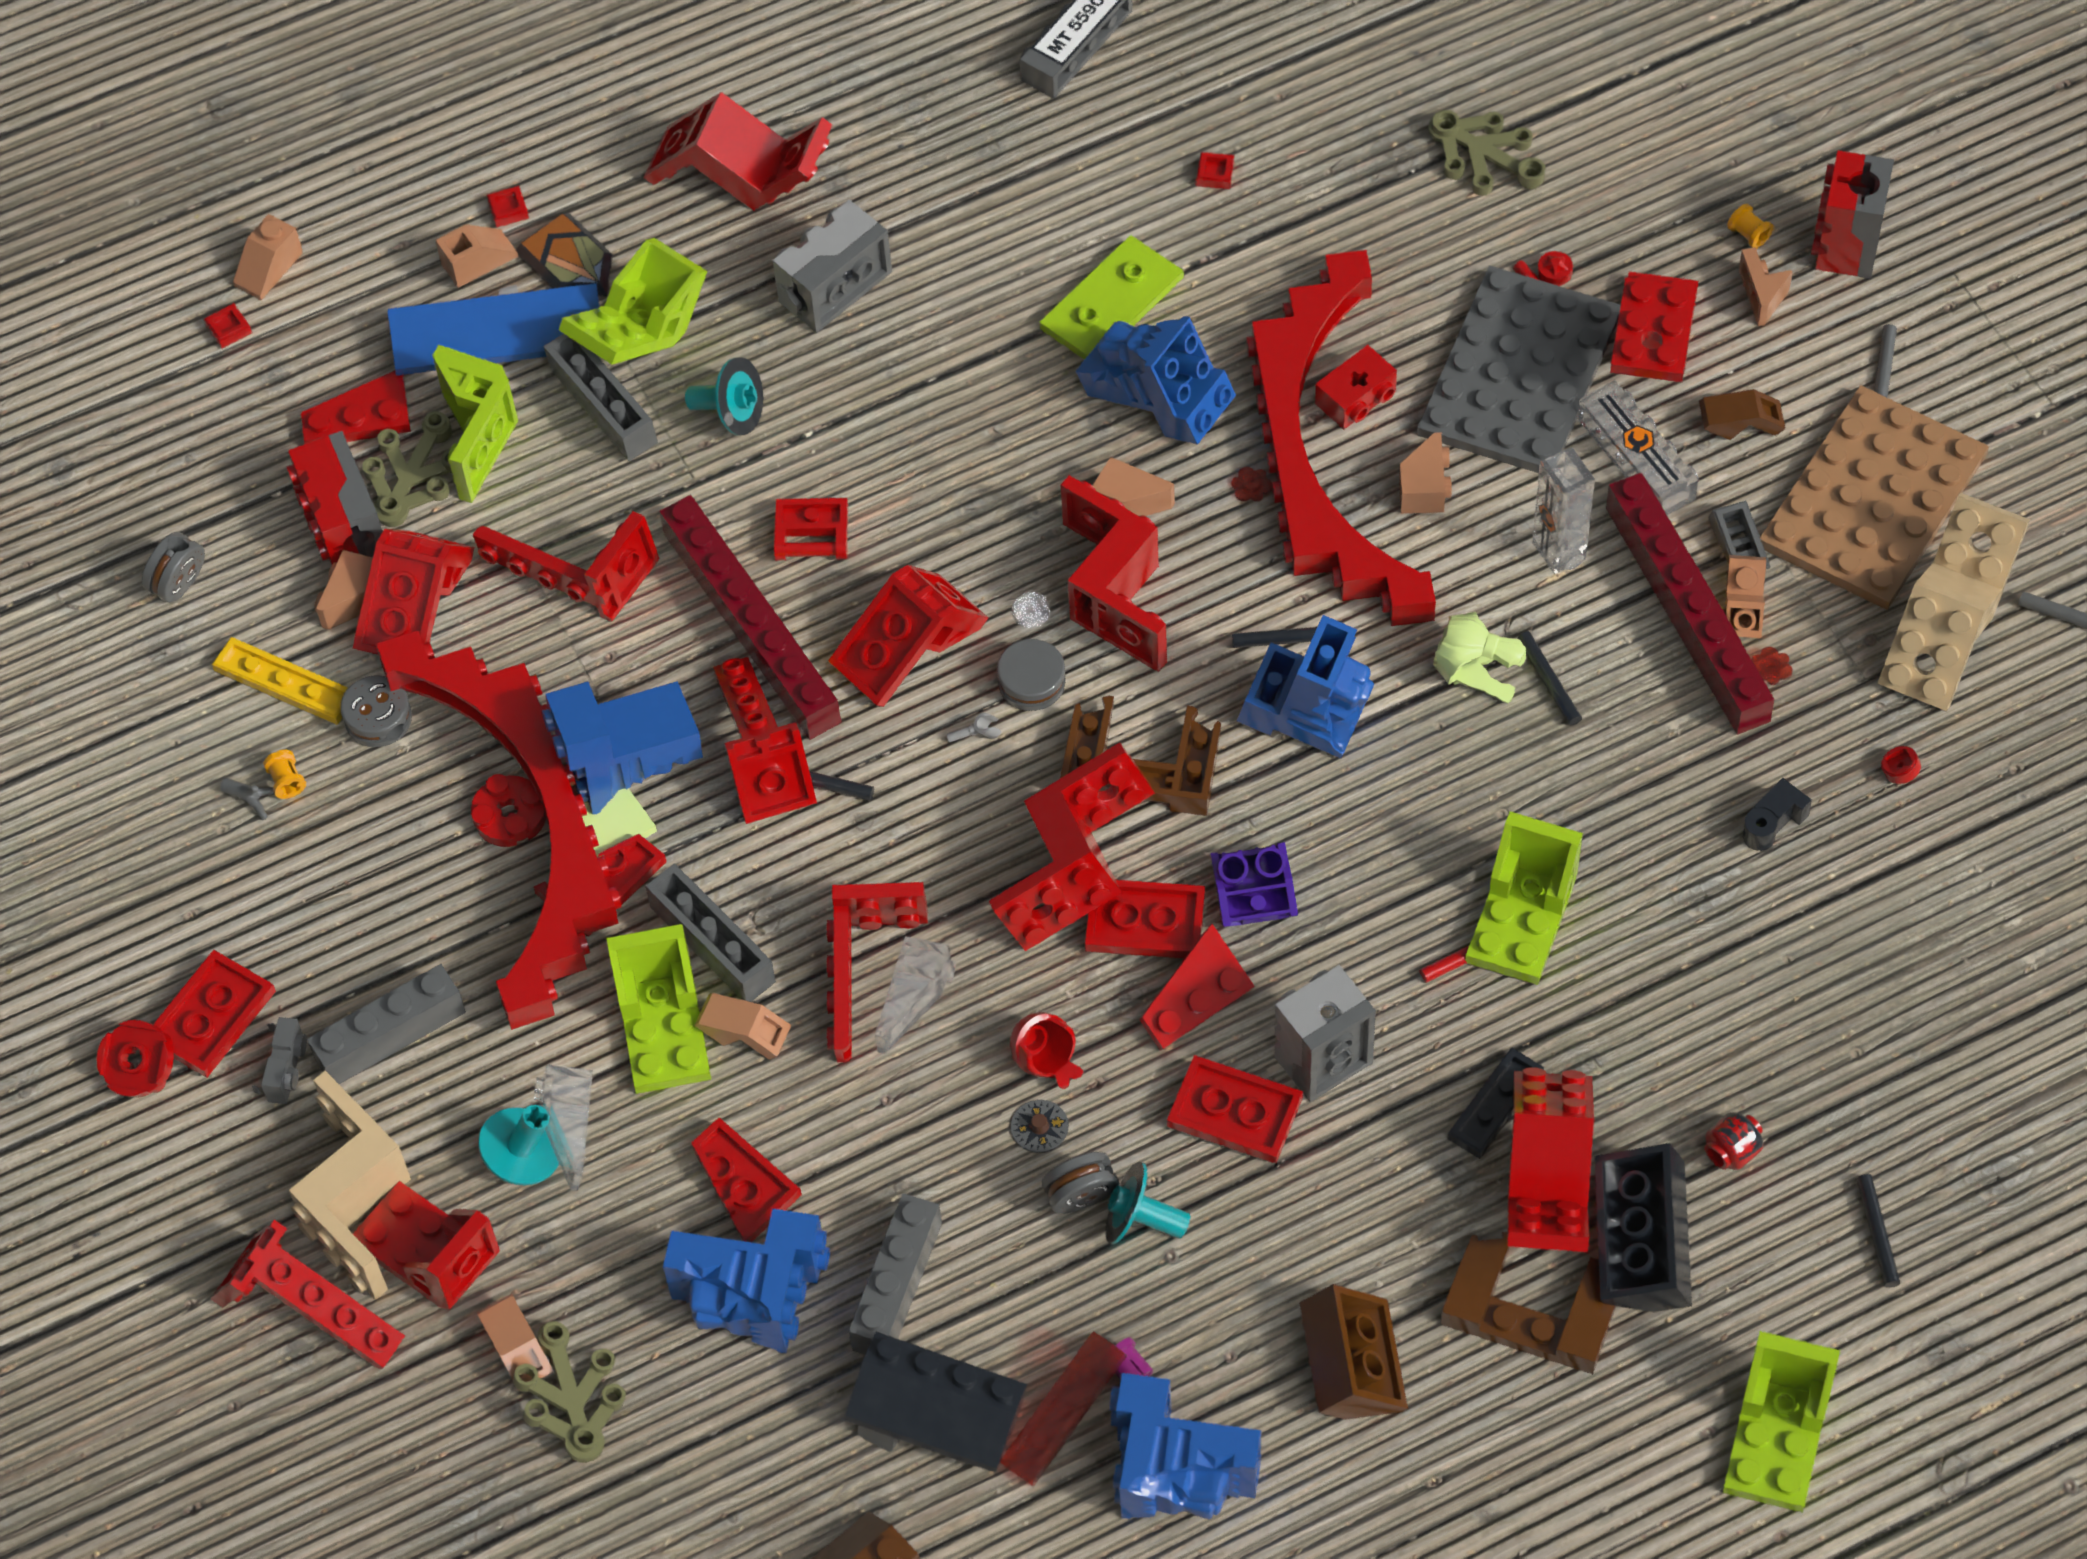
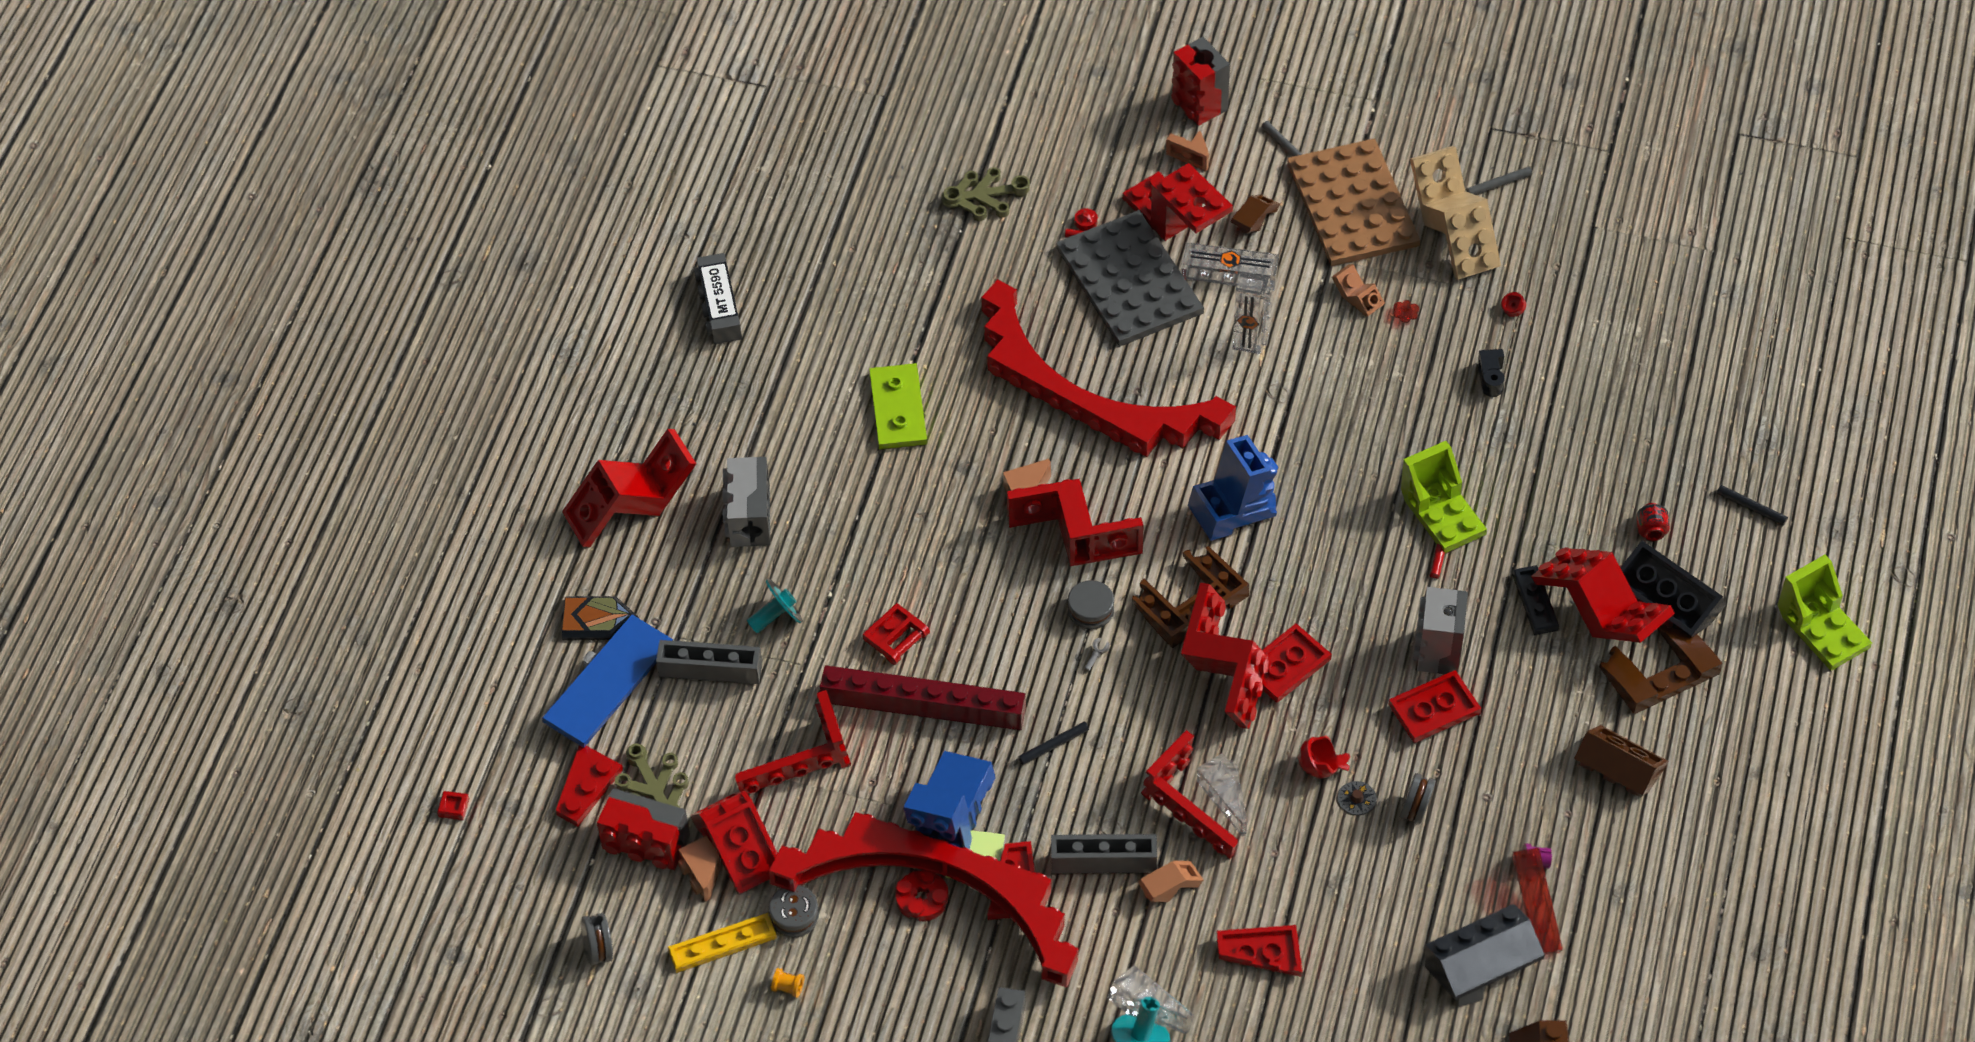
camera: 50 degrees left, 5 degrees down
(247, 793) = (778, 1010): dark grey bar -> none
(267, 256) = (432, 752): nougat slope -> none
(473, 252) = (546, 656): nougat slope -> none
(484, 410) = (639, 715): lime bracket -> none
(507, 206) = (527, 620): red tile -> none
(644, 308) = (677, 599): lime bracket -> none
(659, 1008) = (1114, 909): lime bracket -> none
(749, 1284) = (1335, 986): blue brick -> none
(767, 759) = (1031, 745): red bracket -> none
(896, 1271) = (1389, 919): dark grey brick -> none
(903, 620) = (1010, 641): red bracket -> none
(1030, 610) = (1050, 576): clear tile -> none
(1130, 1204) = (1454, 785): teal piece -> none
(1159, 372) = (976, 415): blue brick -> none
(1174, 1461) = (1615, 874): blue brick -> none
(1196, 991) = (1353, 672): red wing -> none
(1215, 170) = (868, 306): red tile -> none
(1251, 484) = (1073, 433): clear red plant -> none
(1254, 885) = (1315, 602): dark purple slope -> none
(1264, 638) = (1181, 484): black bar -> none
(1356, 387) = (1069, 346): red brick -> none
(1423, 480) = (1154, 360): nougat slope -> none
(1467, 647) = (1273, 413): yellowish green piece -> none
(1550, 679) = (1319, 399): black bar -> none
(1689, 603) = (1351, 315): dark red brick -> none
(1740, 512) = (1318, 259): dark grey slope -> none
(1750, 226) = (1150, 128): light orange bush -> none

